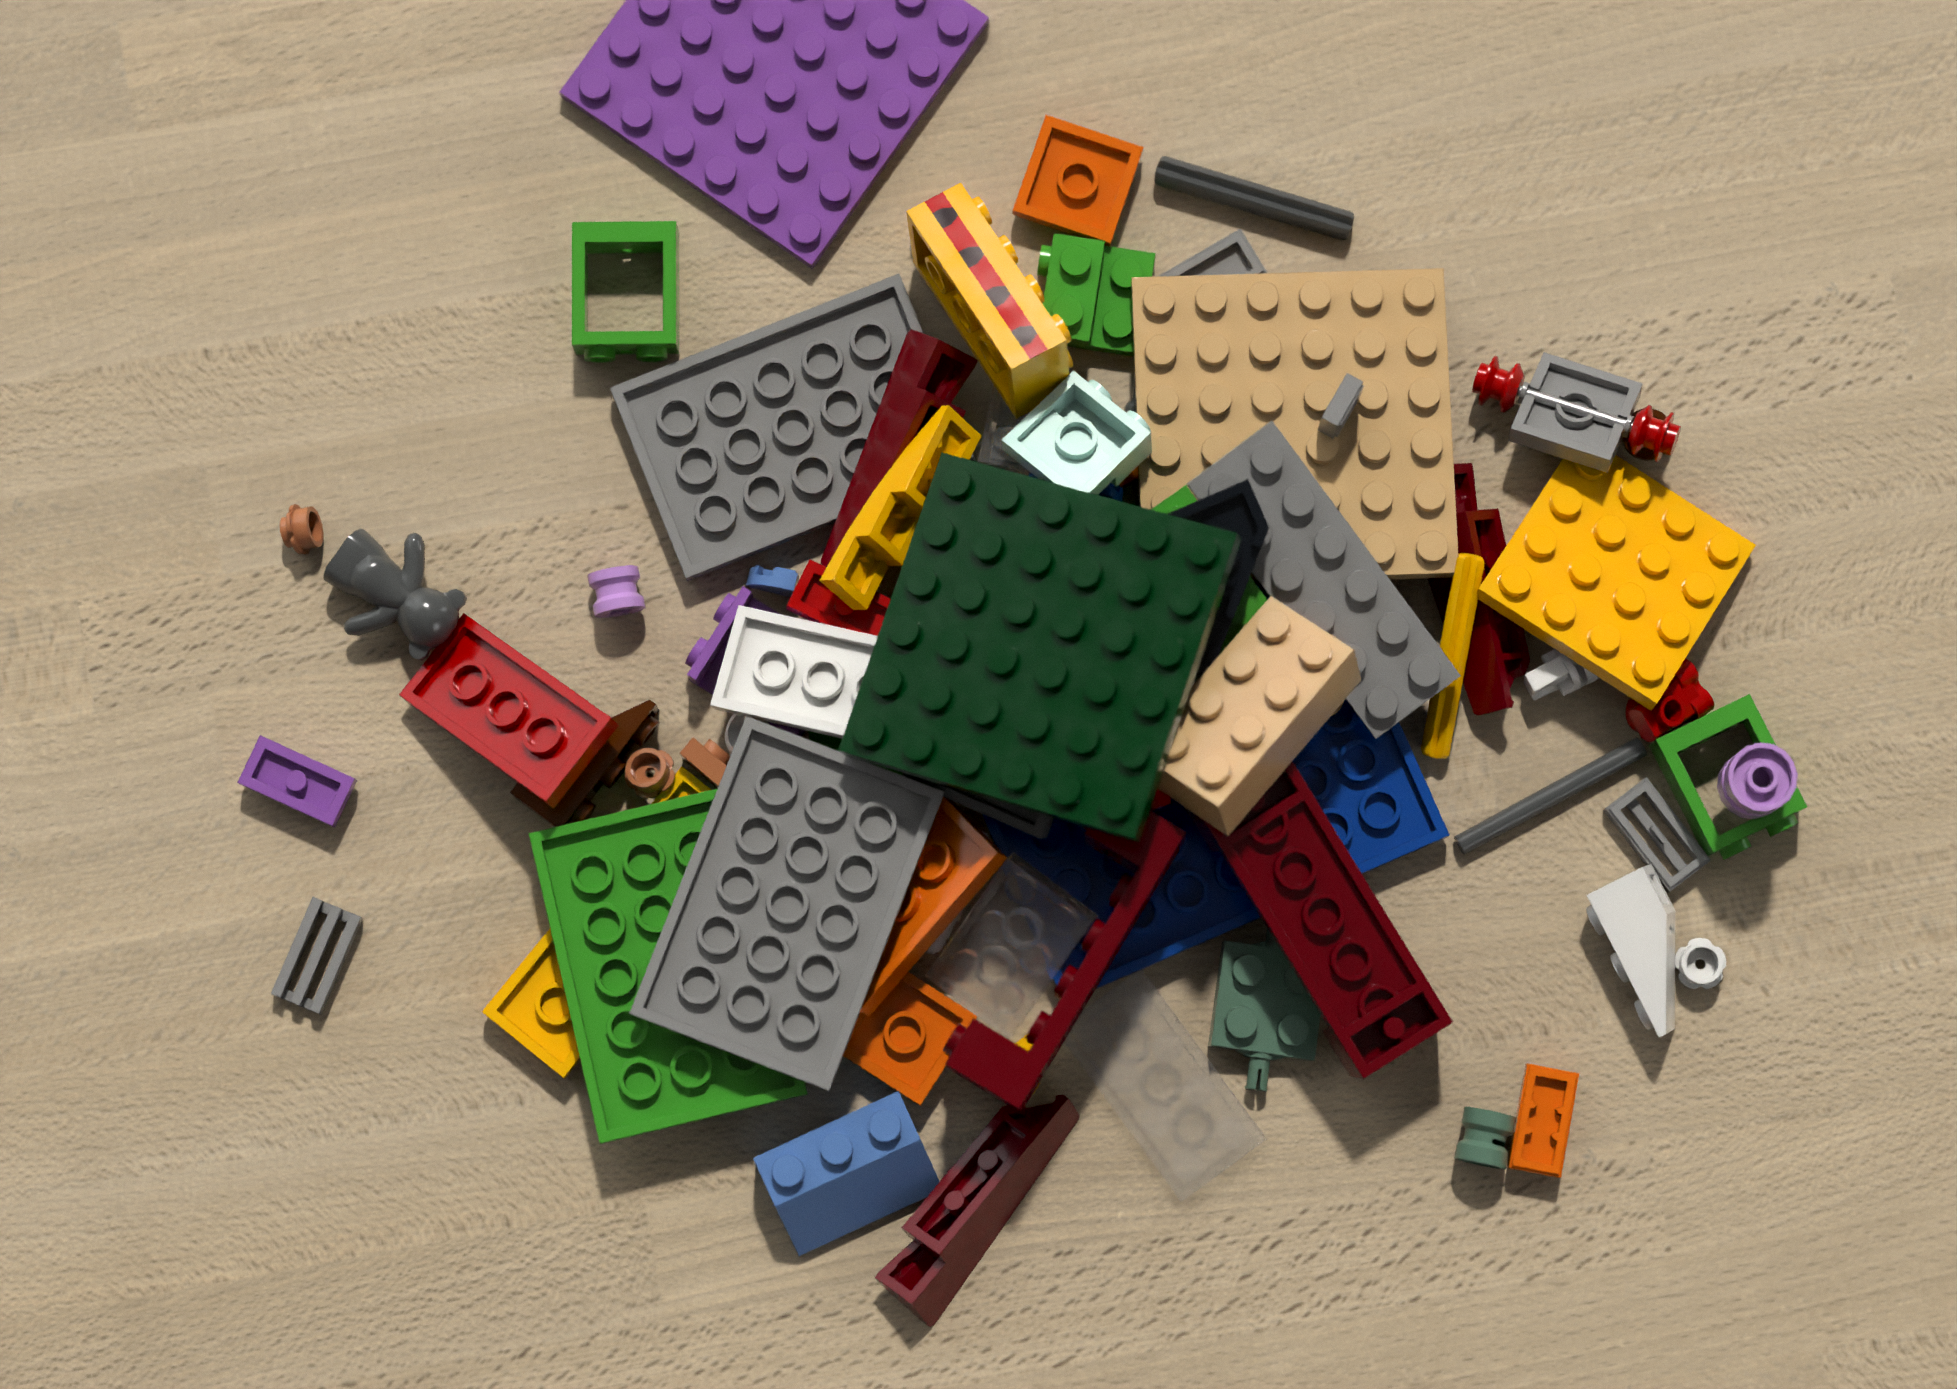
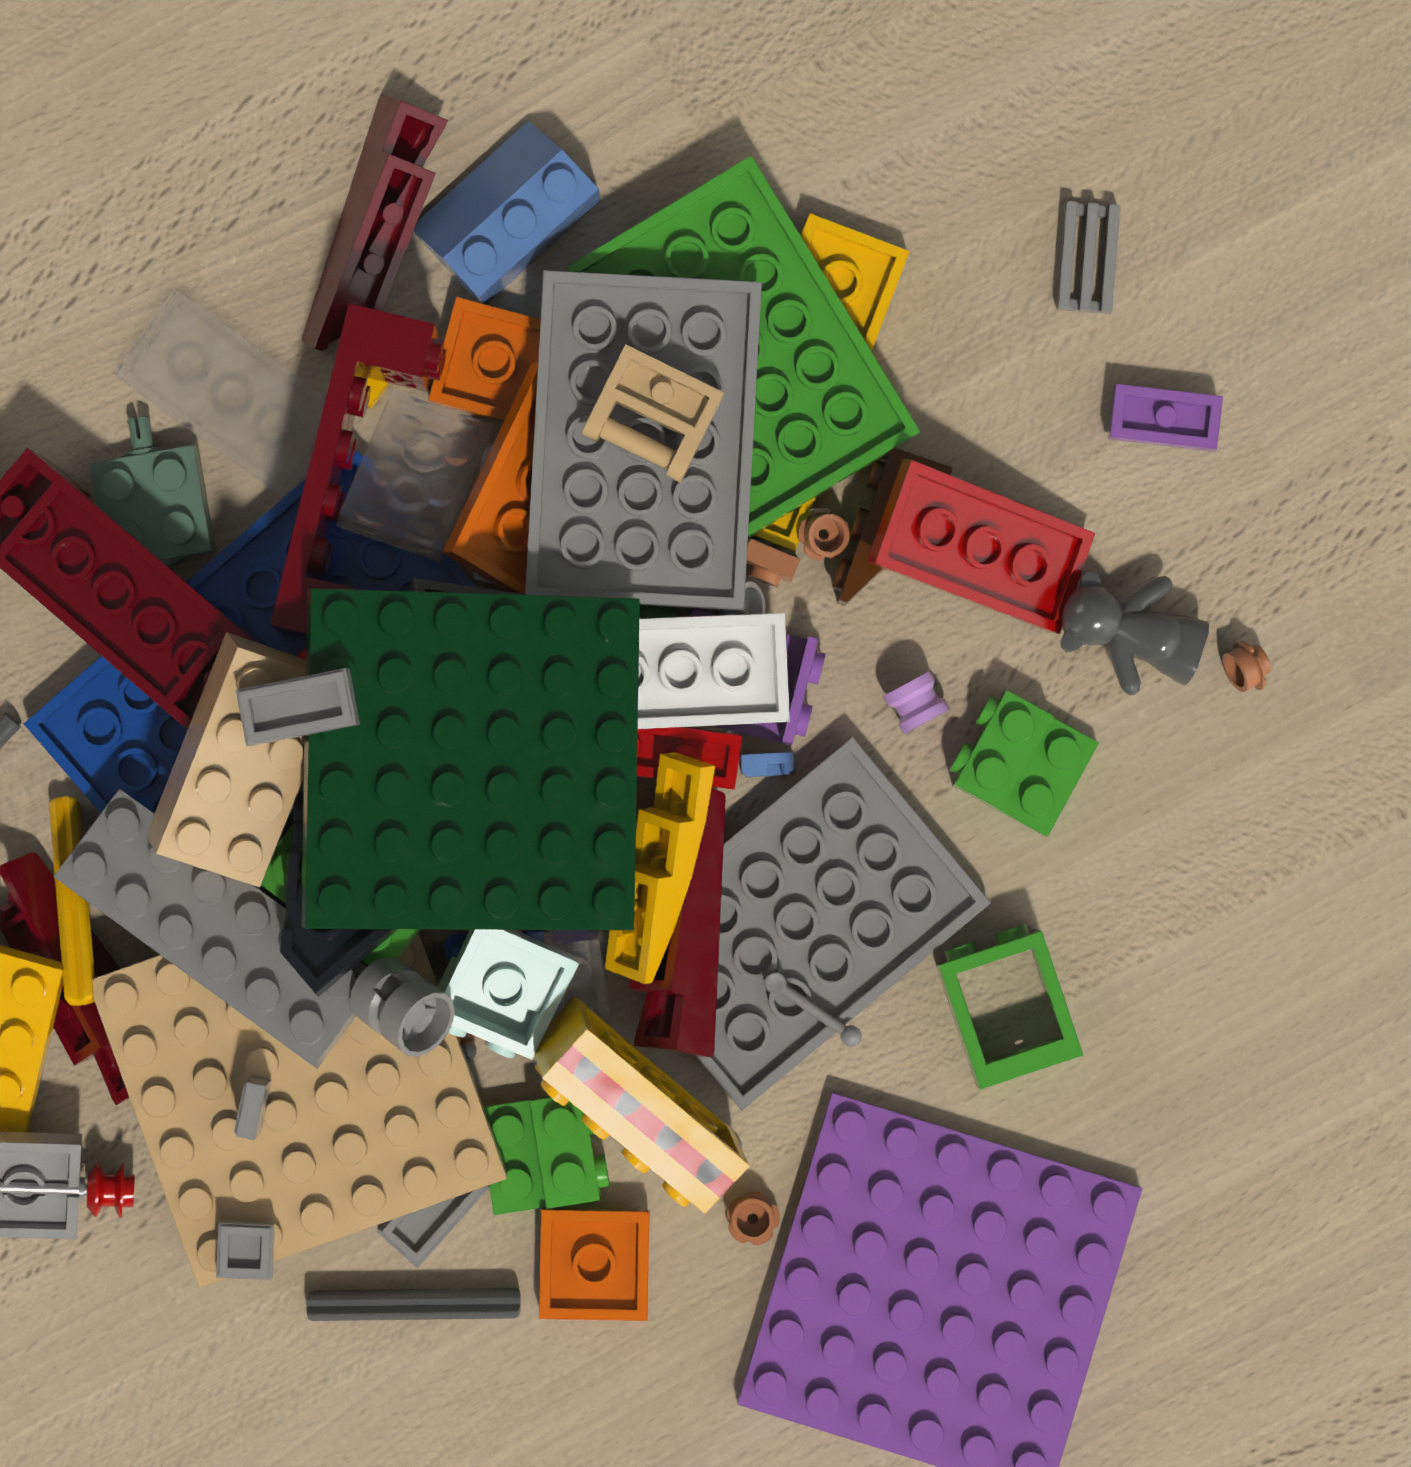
camera: 160 degrees right, 5 degrees up
(537, 508) = (1022, 762): none -> bright green plate
(756, 932) = (660, 396): none -> tan plate
(830, 375) = (776, 984): none -> light grey hinge
(921, 163) = (756, 1204): none -> nougat plate
(1174, 447) = (402, 1006): none -> light grey wheel
(1179, 731) = (297, 707): none -> light grey tile
(1388, 285) = (245, 1249): none -> light grey tile

